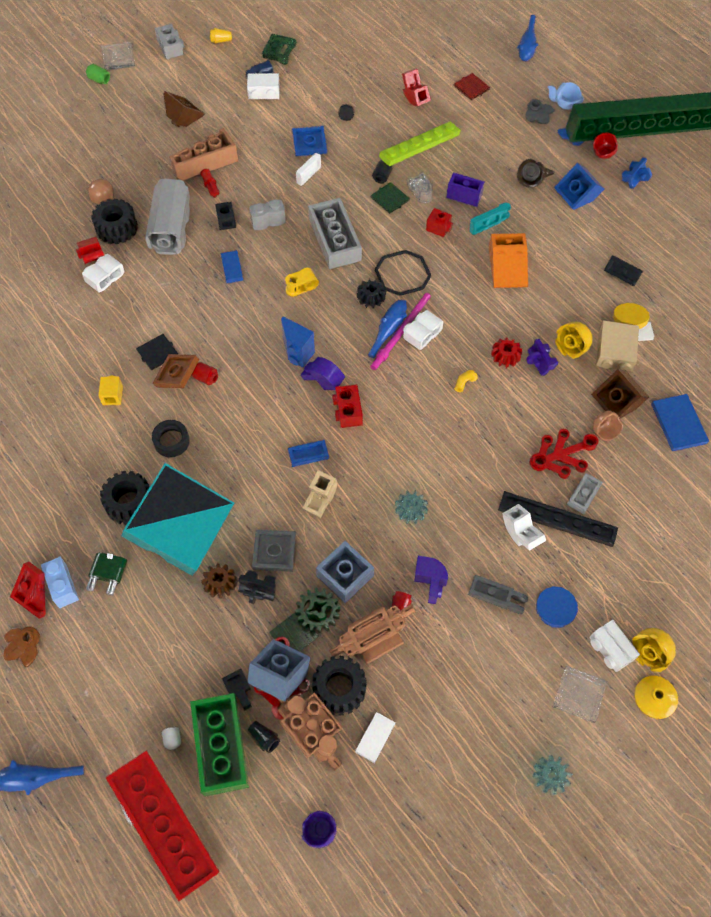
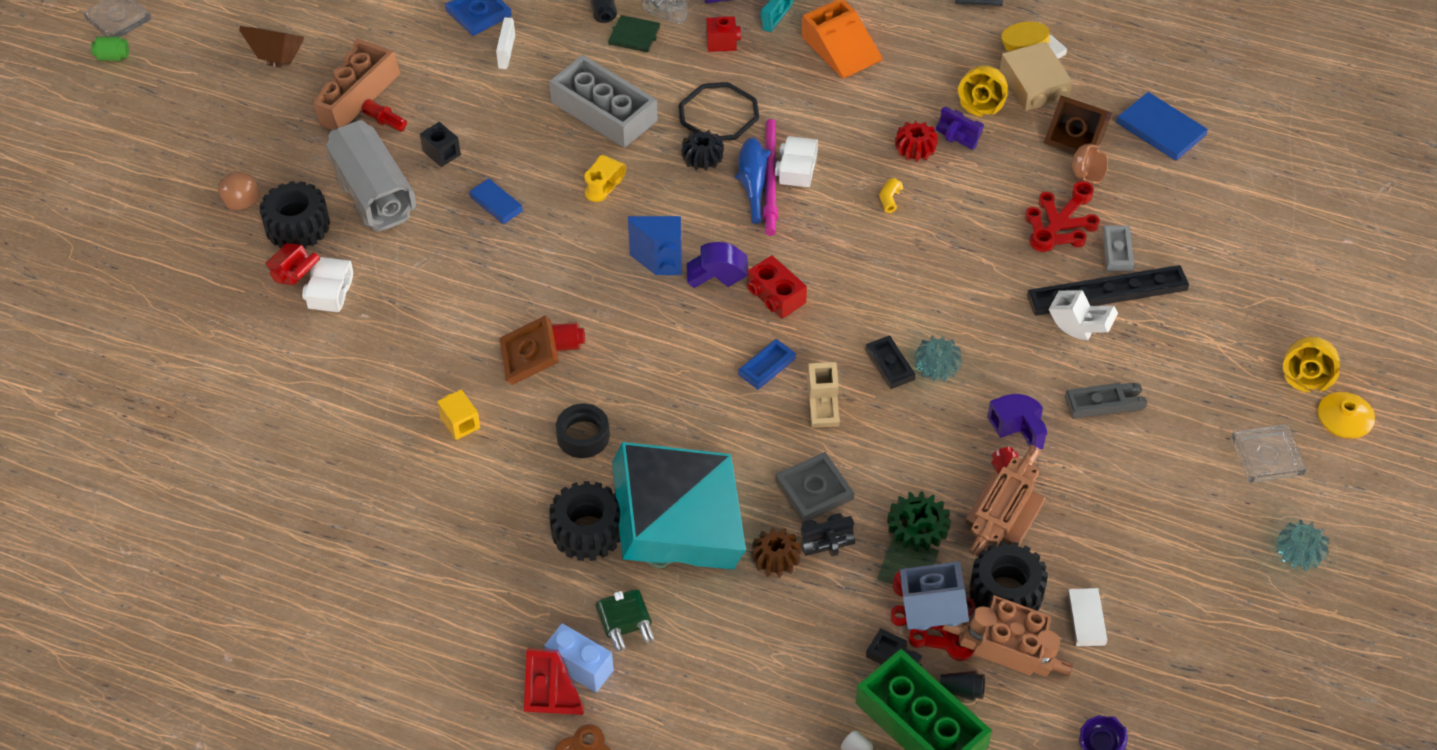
camera: 30 degrees left, 10 degrees down
(156, 351) = (477, 344): black piece -> none
(267, 214) = (496, 118): light grey brick -> none
(345, 571) = (919, 461): sand blue brick -> none
(380, 493) = (890, 362): none -> black plate
(556, 607) = (1177, 379): blue tile -> none
(613, 646) = (1268, 384): white brick -> none

